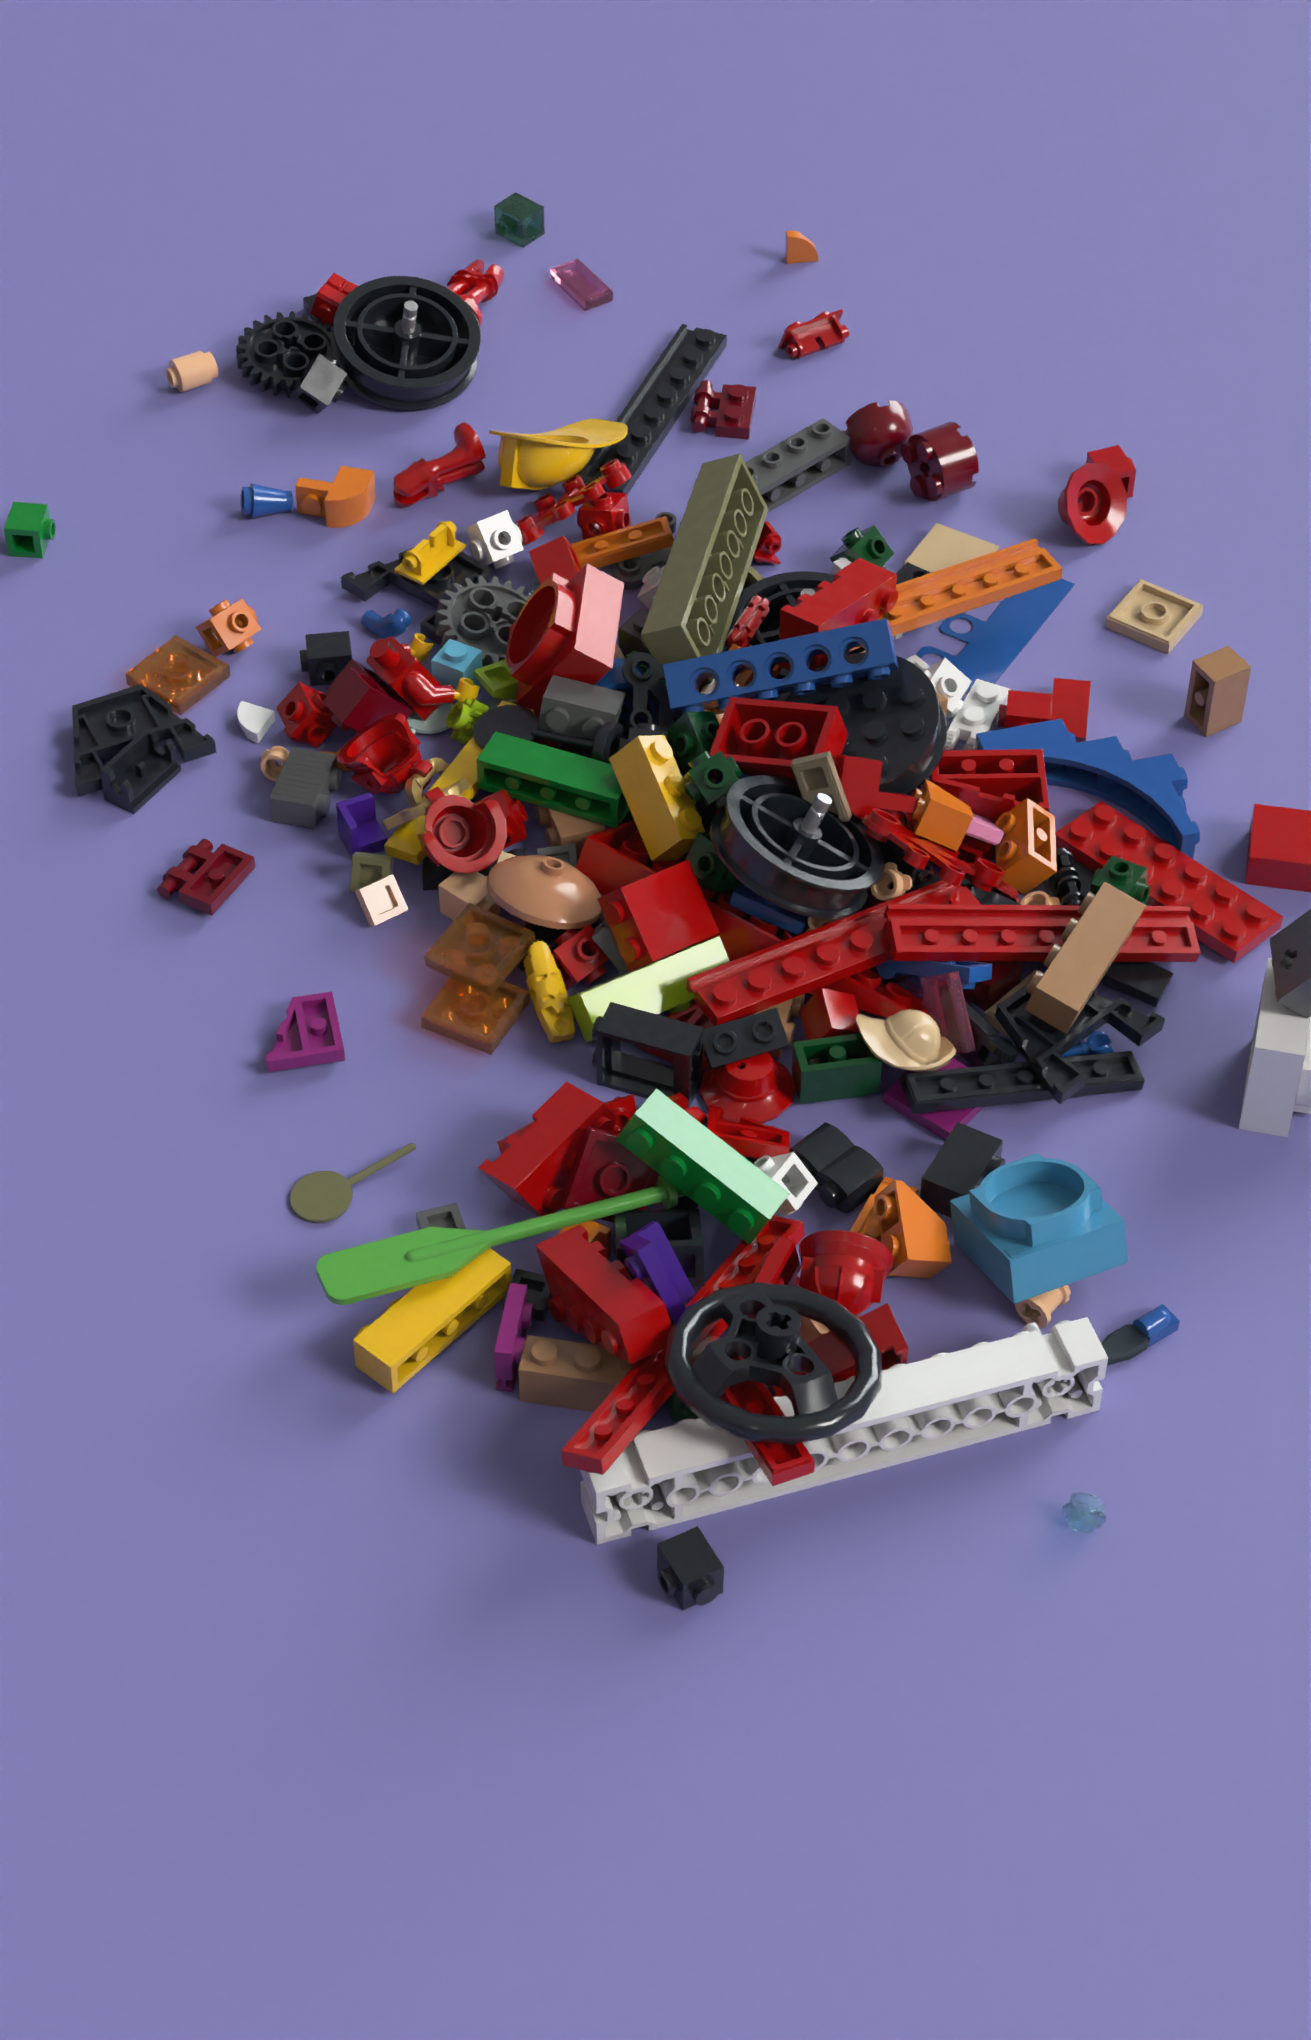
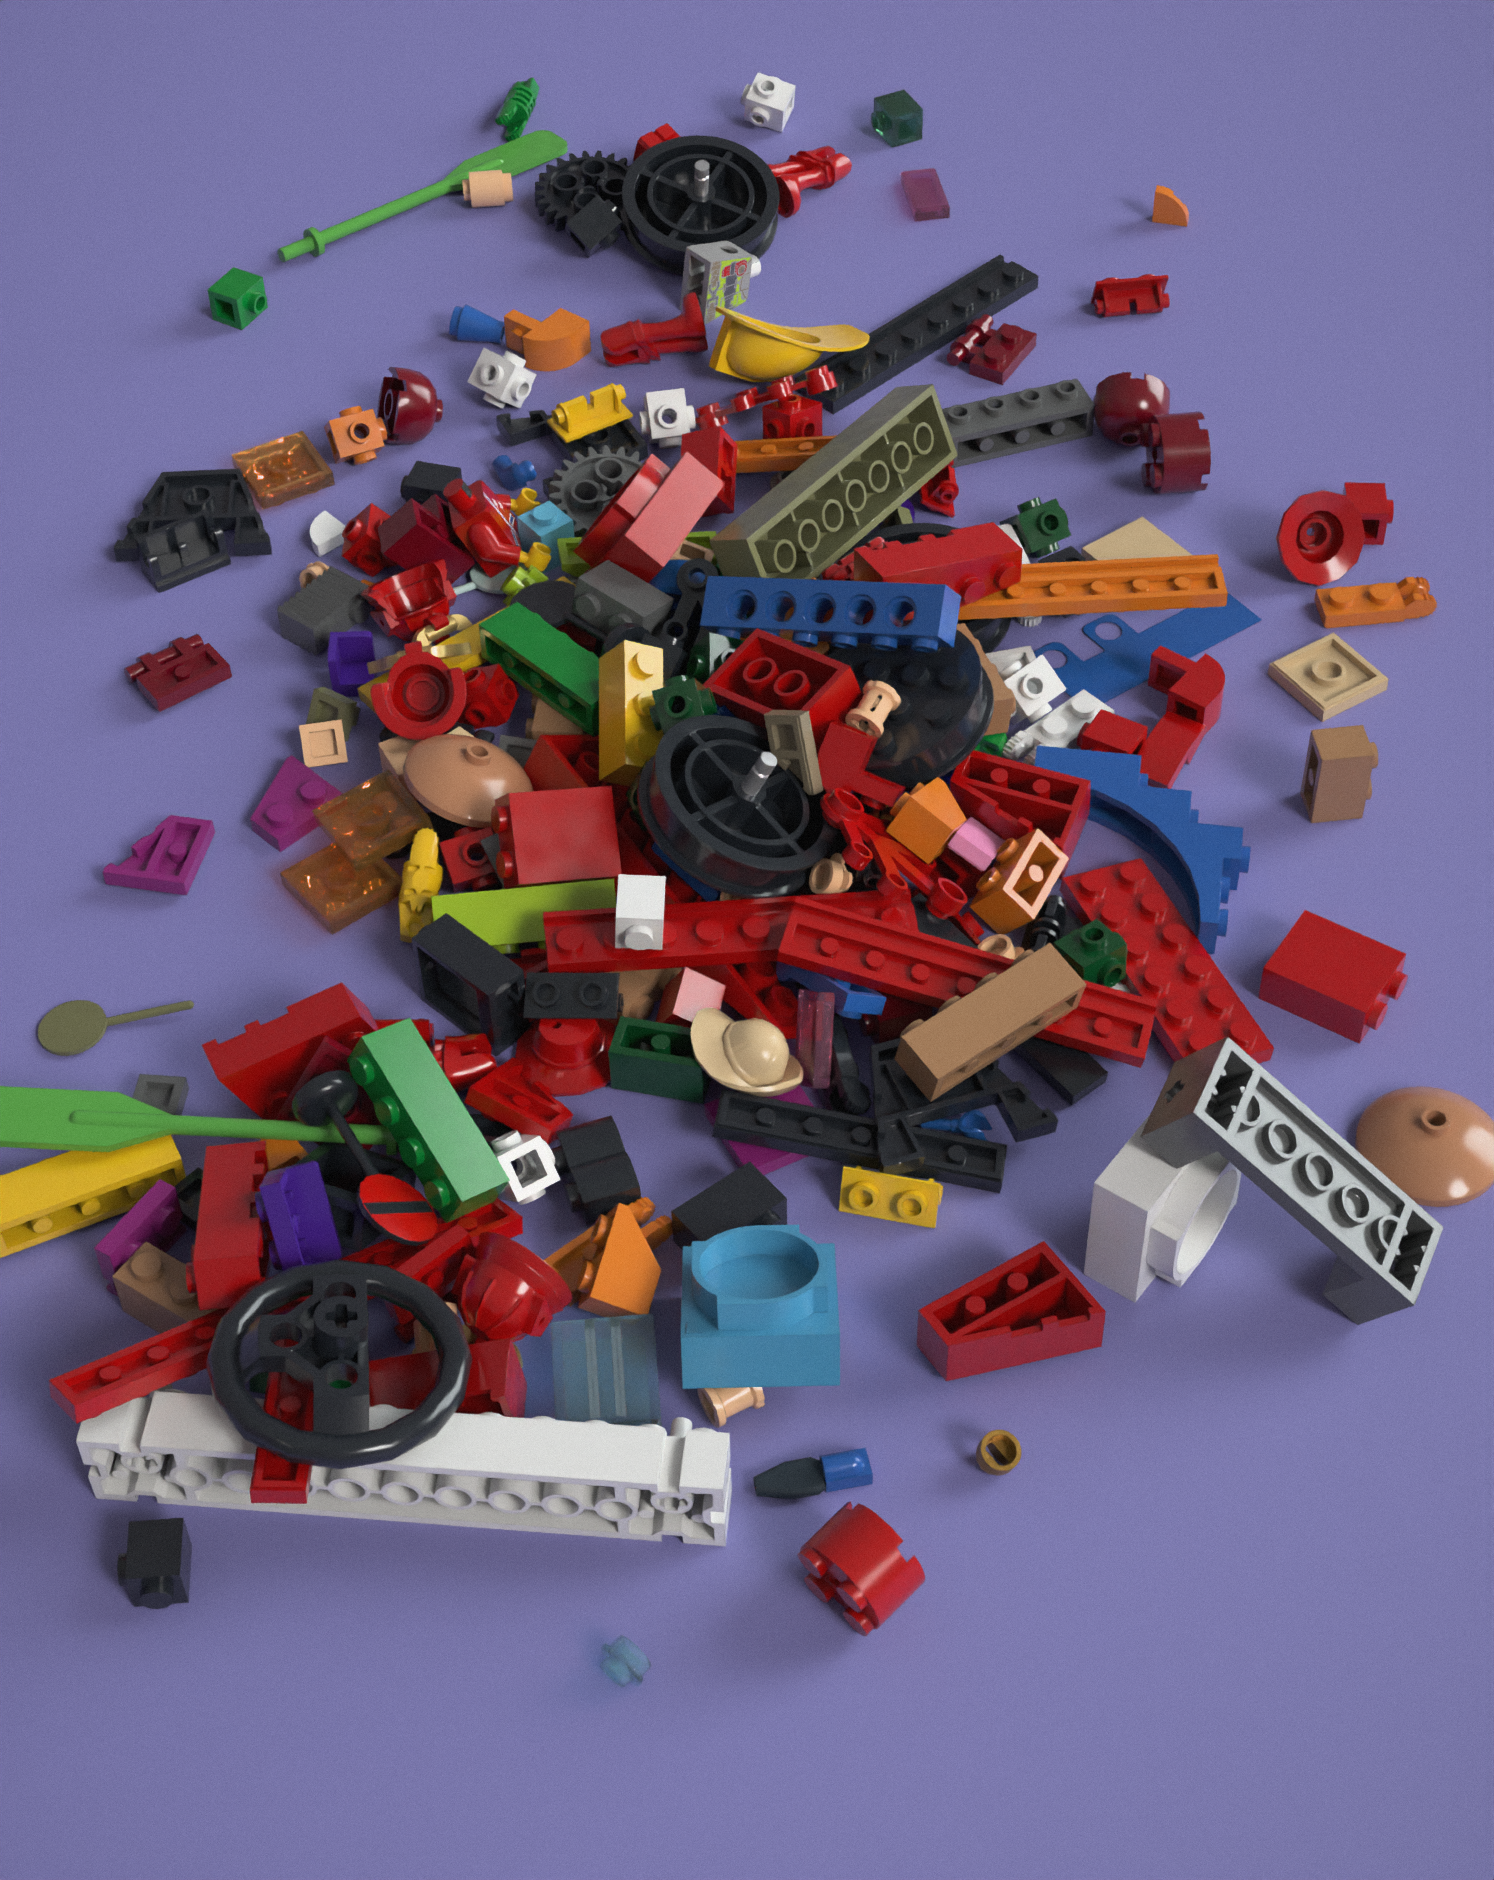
camera: 25 degrees right, 0 degrees up
(166, 289) = (518, 108): none -> green hinge
(188, 335) = (510, 157): none -> bright green piece
(260, 584) = (408, 406): none -> dark red cylinder
(327, 542) = (502, 378): none -> white brick
(387, 958) = (288, 804): none -> magenta wing
(398, 230) = (768, 102): none -> white brick
(456, 399) = (718, 276): none -> light grey torso
(712, 1237) = (384, 1200): none -> black piece
(776, 952) = (640, 912): none -> white brick
(862, 736) = (875, 719): none -> light nougat bush
(944, 1311) = (606, 1370): none -> clear light blue brick
(1063, 652) = (1191, 686): none -> red brick
(1068, 1116) = (890, 1197): none -> yellow hinge
(1156, 546) = (1375, 603): none -> orange hinge
(1219, 1173) = (1010, 1317): none -> red wedge
(1220, 1383) = (860, 1567): none -> red brick
(1261, 1274) = (1003, 1447): none -> pearl gold hinge

